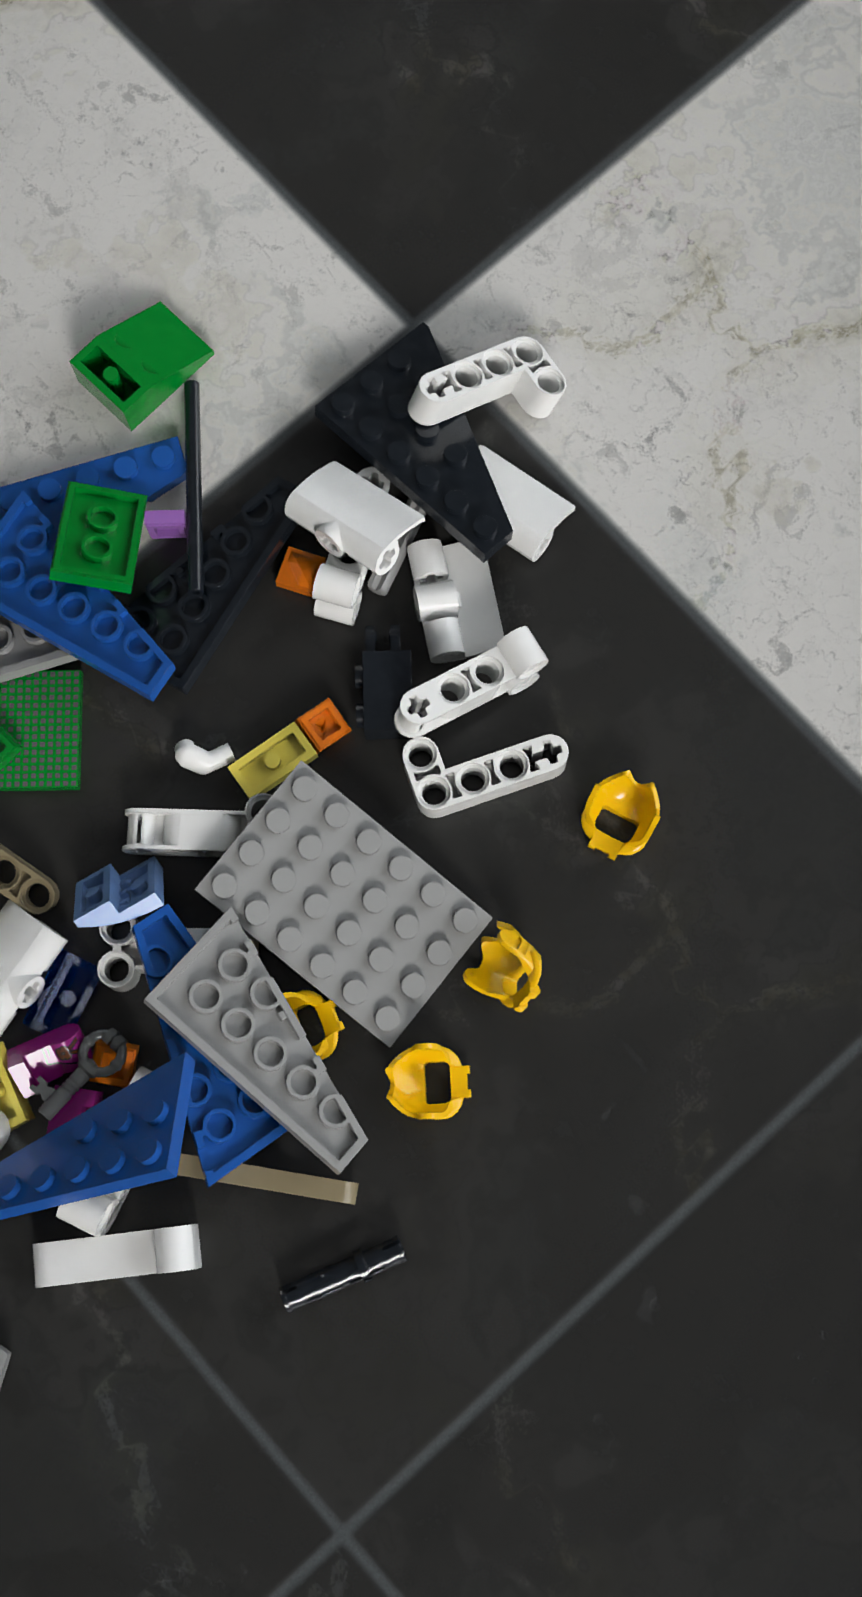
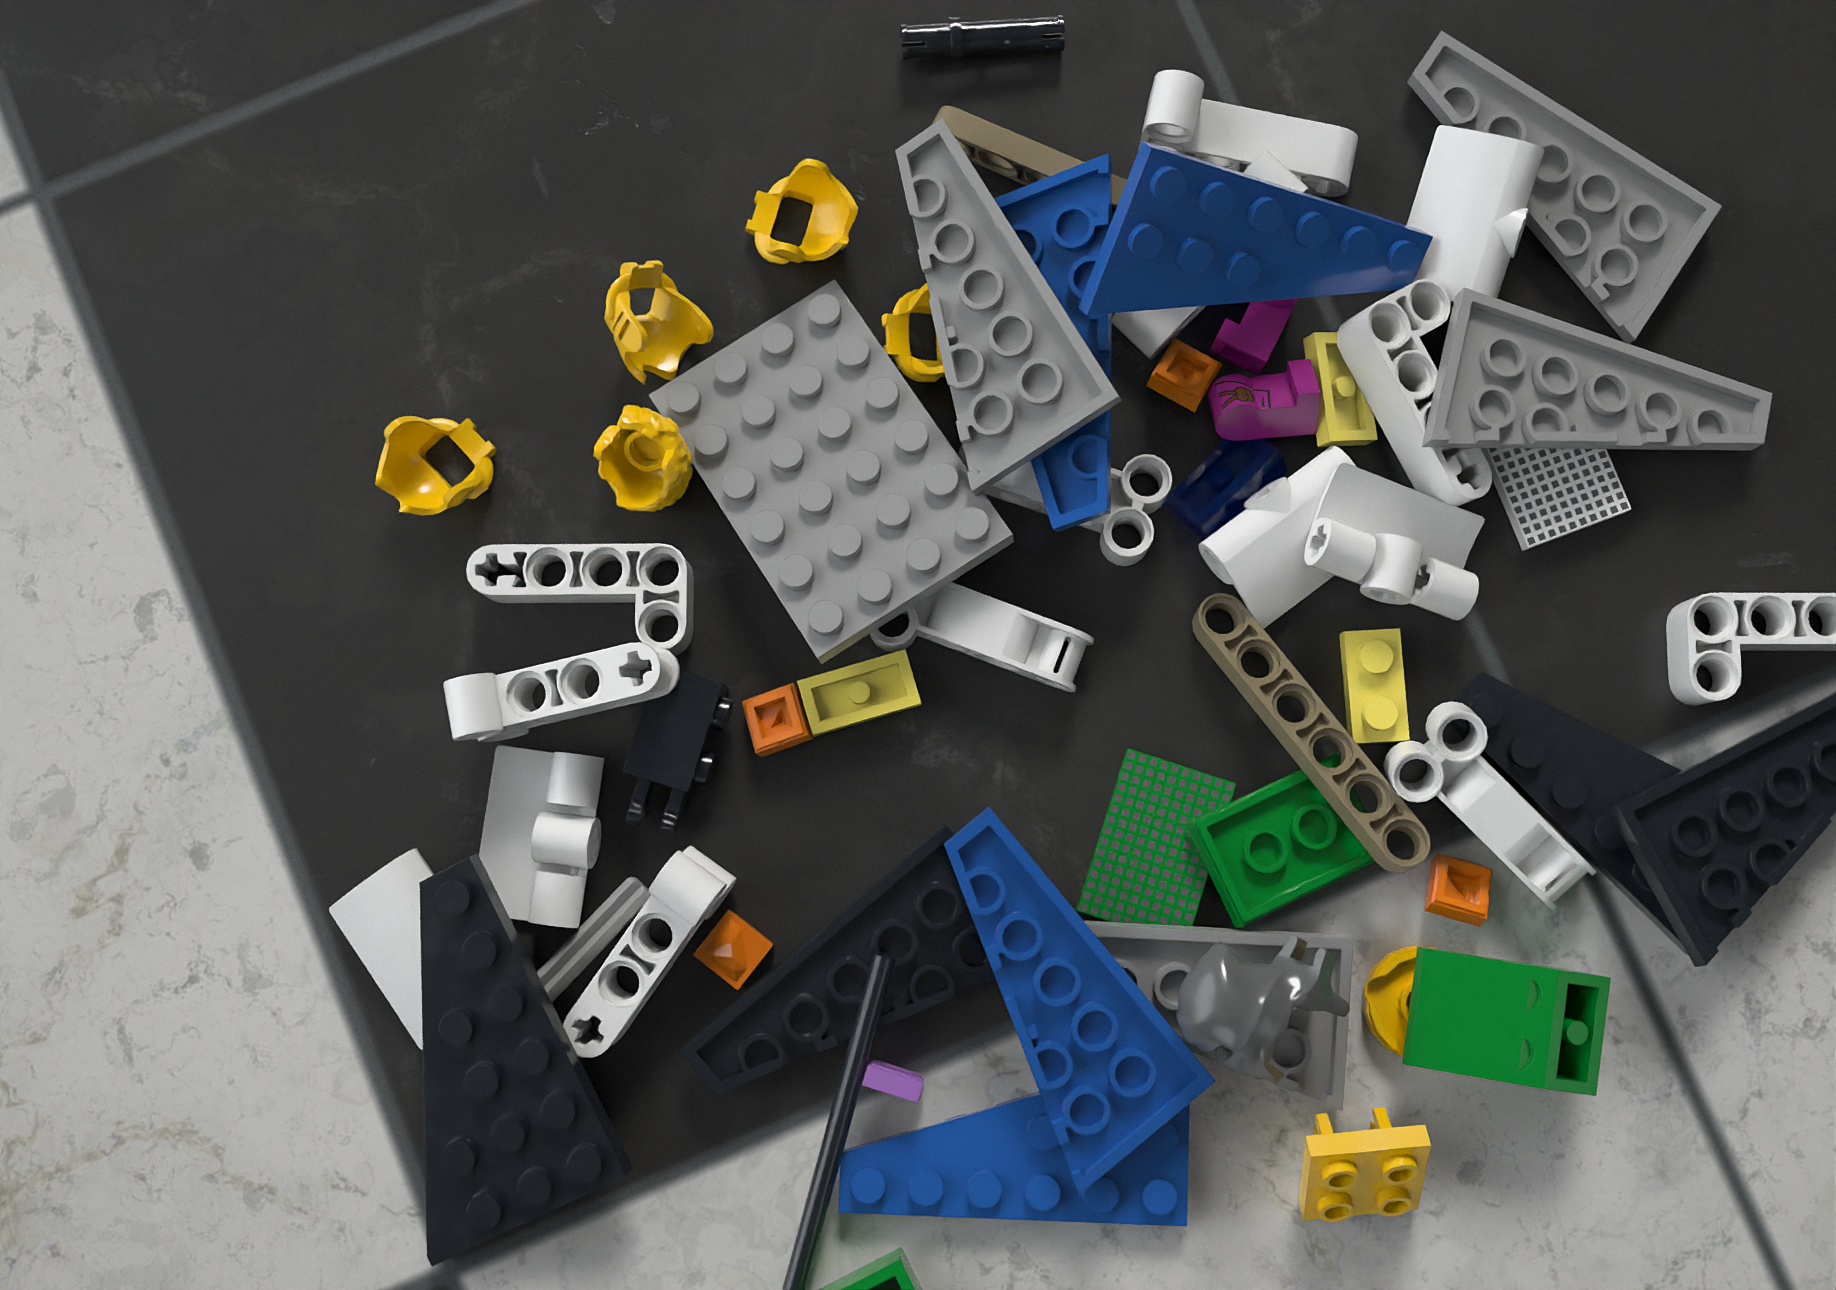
camera: 160 degrees left, 5 degrees up
(87, 1068) = (1220, 364): dark grey piece -> none
(98, 537) = (992, 1079): green tile -> none
(113, 899) = (1114, 573): medium blue slope -> none
(200, 760) = (952, 728): white arm -> none
(352, 516) = (628, 979): white panel -> none
(476, 865) = (644, 460): none -> yellow hair
(511, 367) = (322, 1137): white beam -> none

